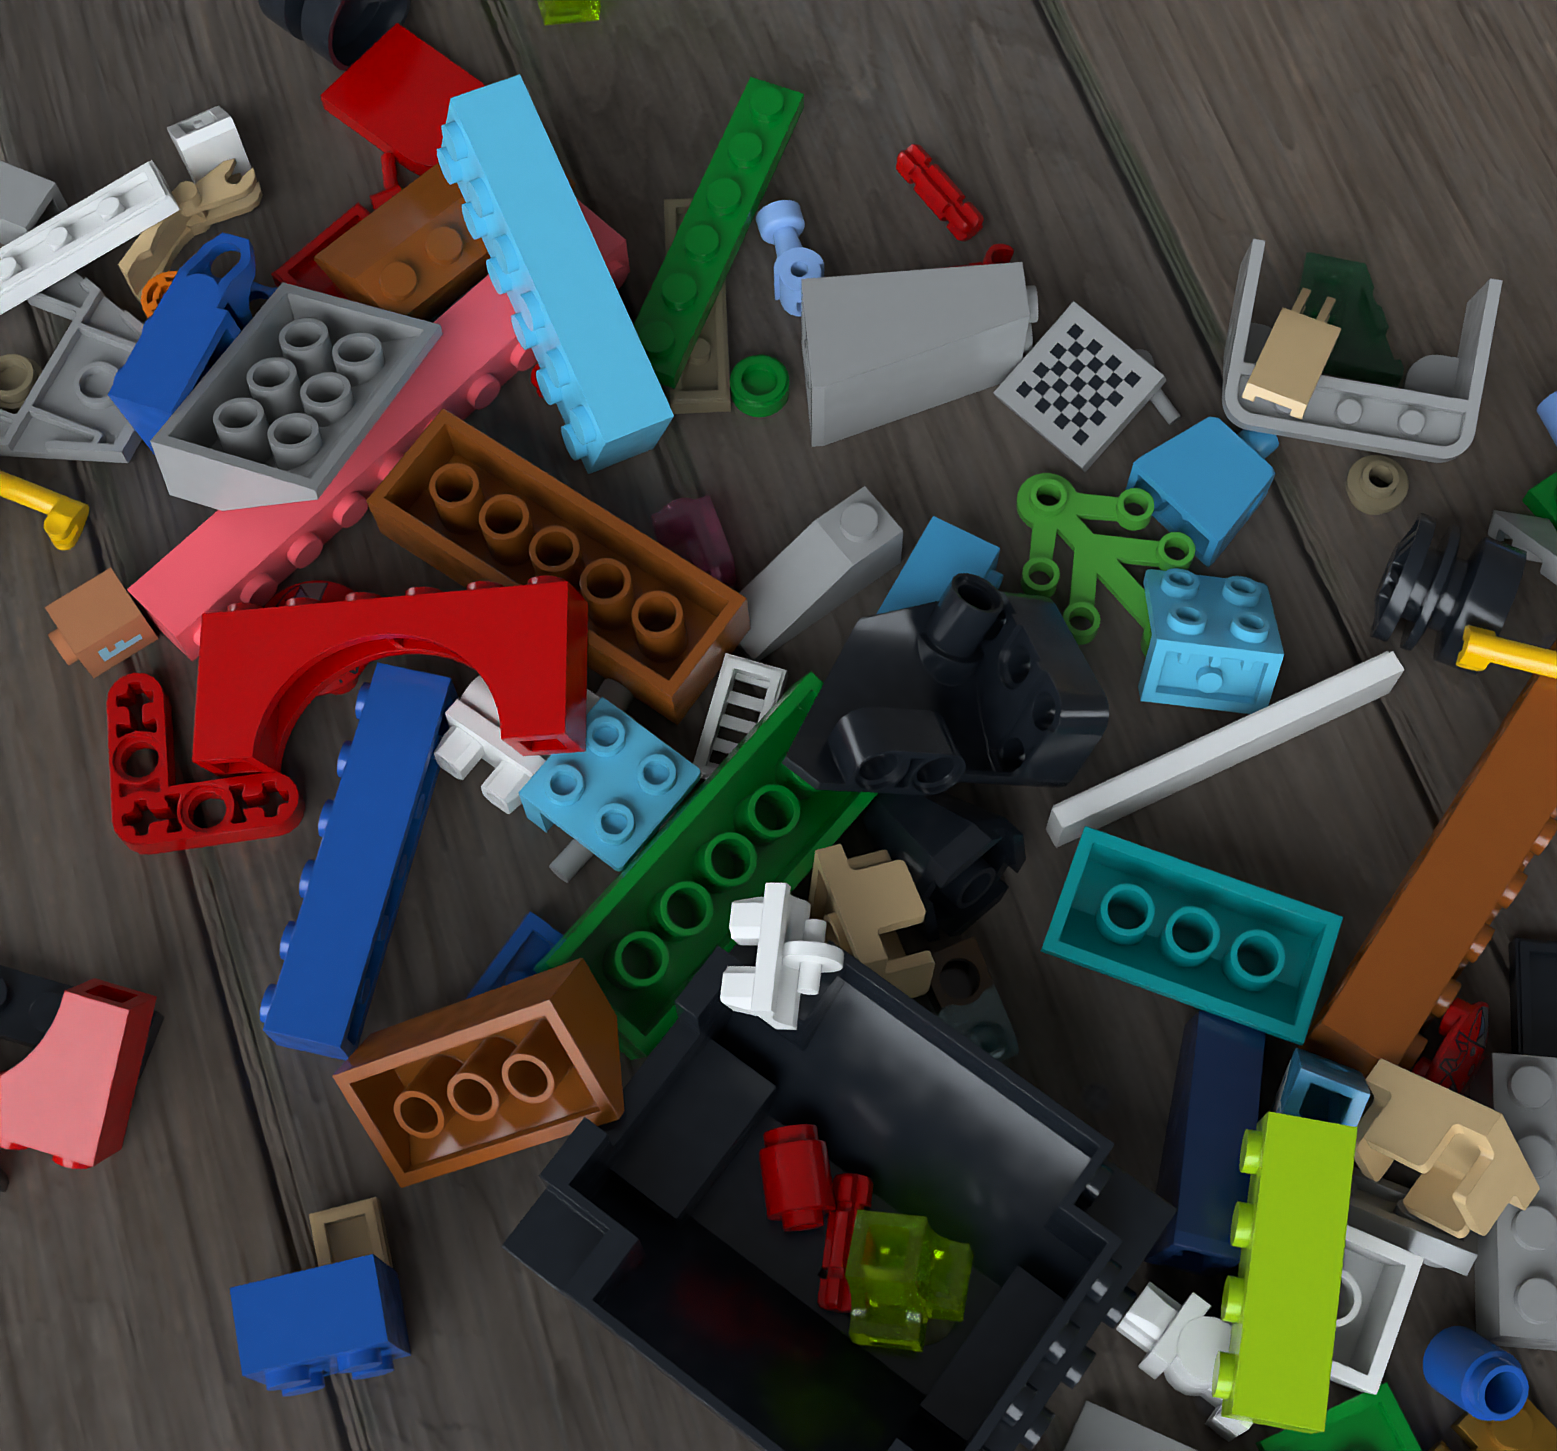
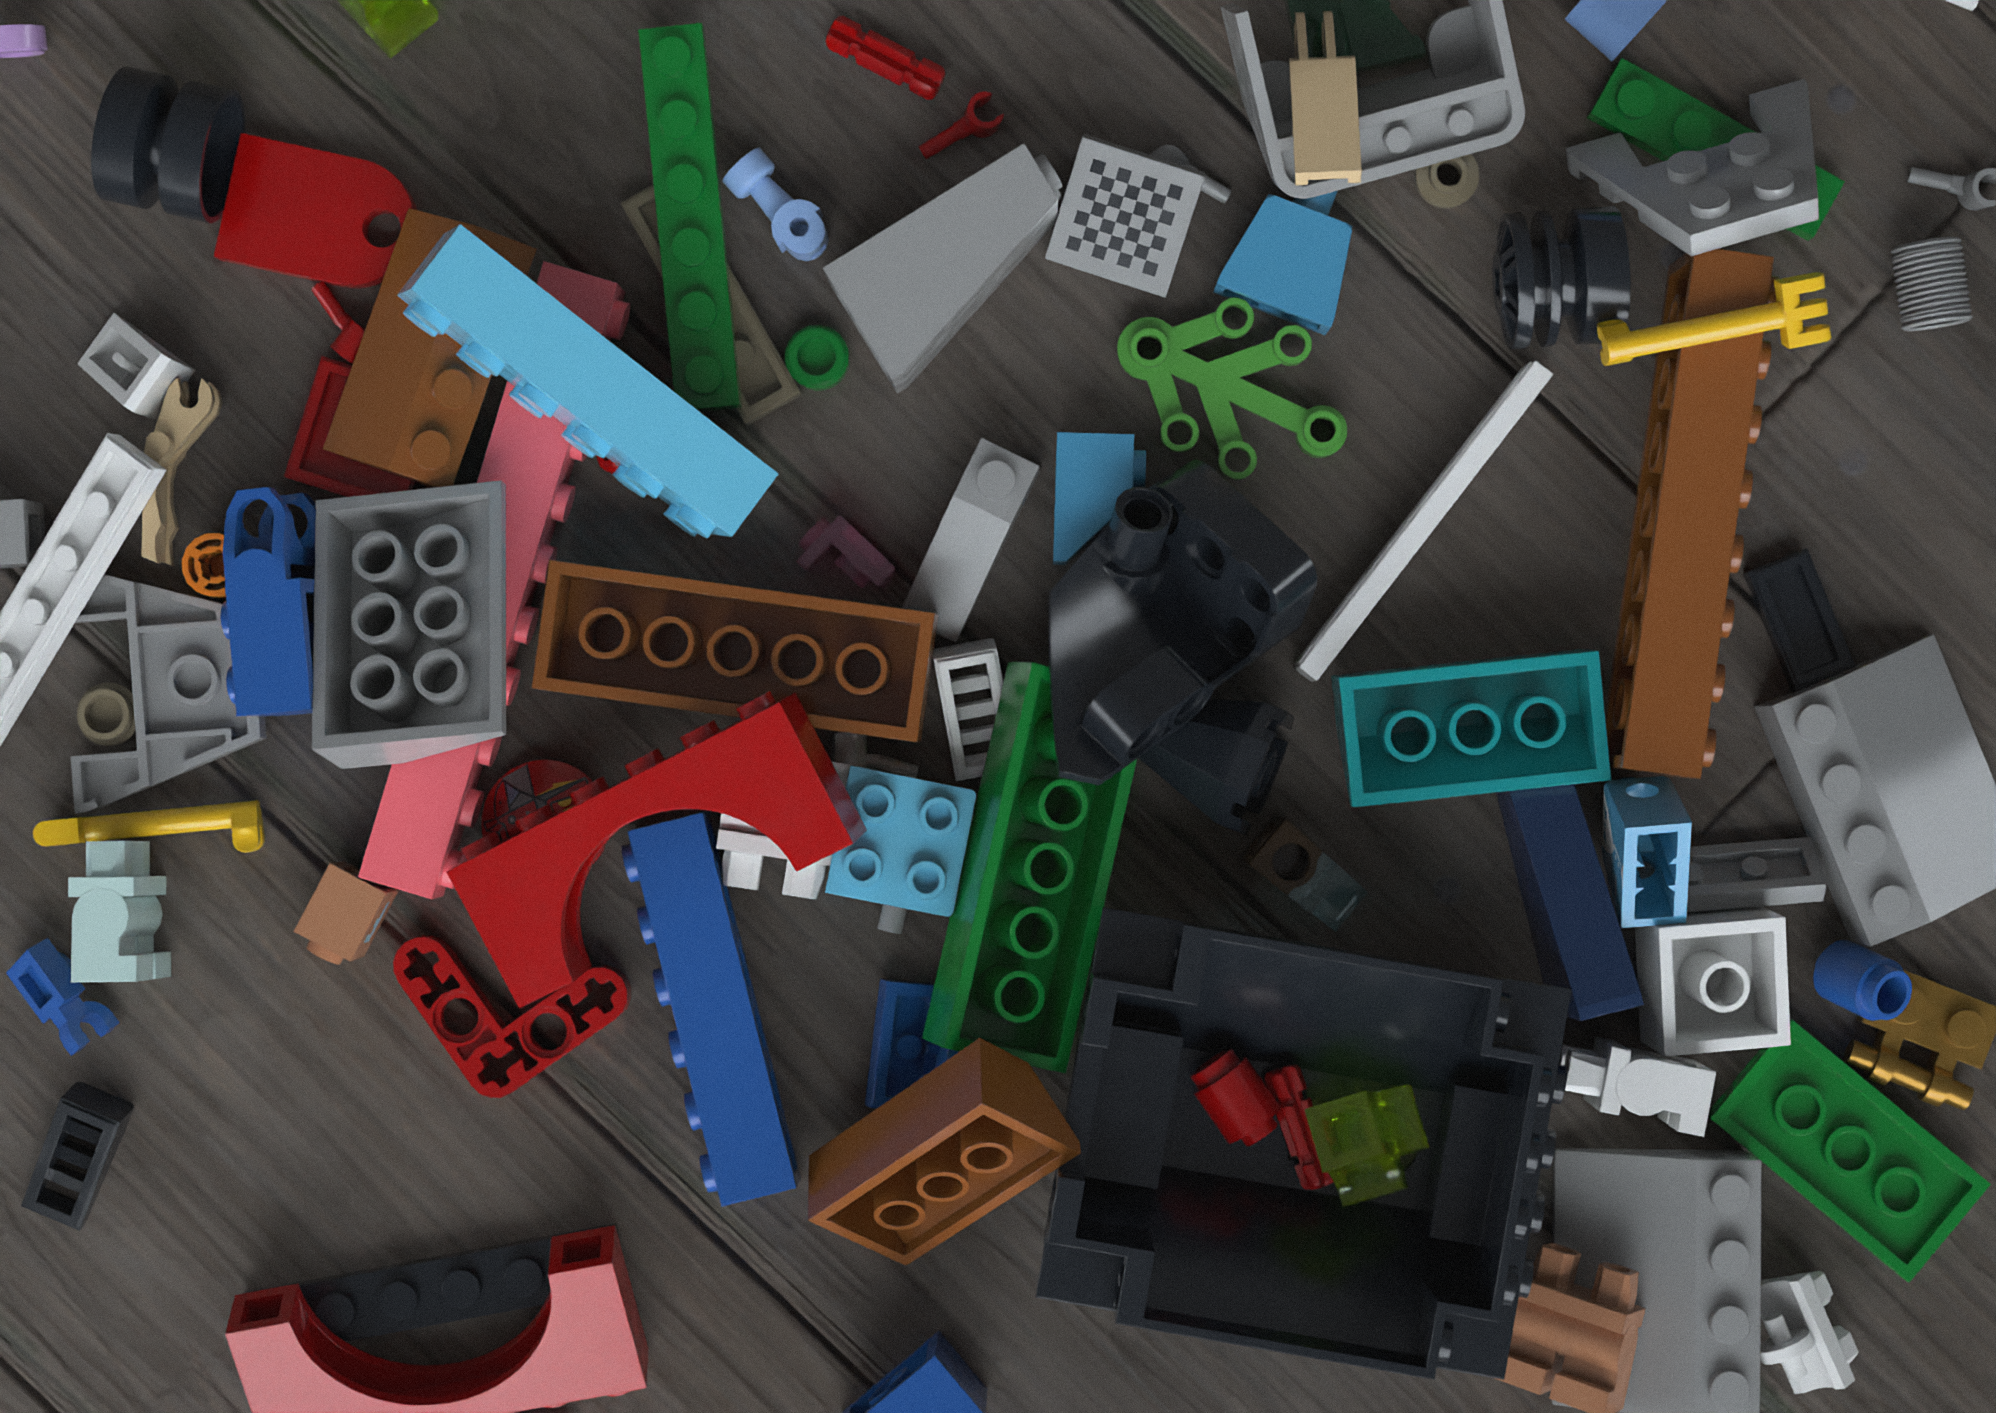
camera: 30 degrees left, 20 degrees up
(350, 1232) = (887, 1327): tan tile -> none
(787, 960) = (1163, 968): white hips -> none
(864, 906) = (1192, 860): tan panel -> none
(1210, 642) = (1361, 417): medium azure bracket -> none
(1287, 1274) = (1685, 1006): lime brick -> none
(1457, 1144) = (1765, 832): tan panel -> none
(1462, 1049) = (1745, 703): red dish -> none

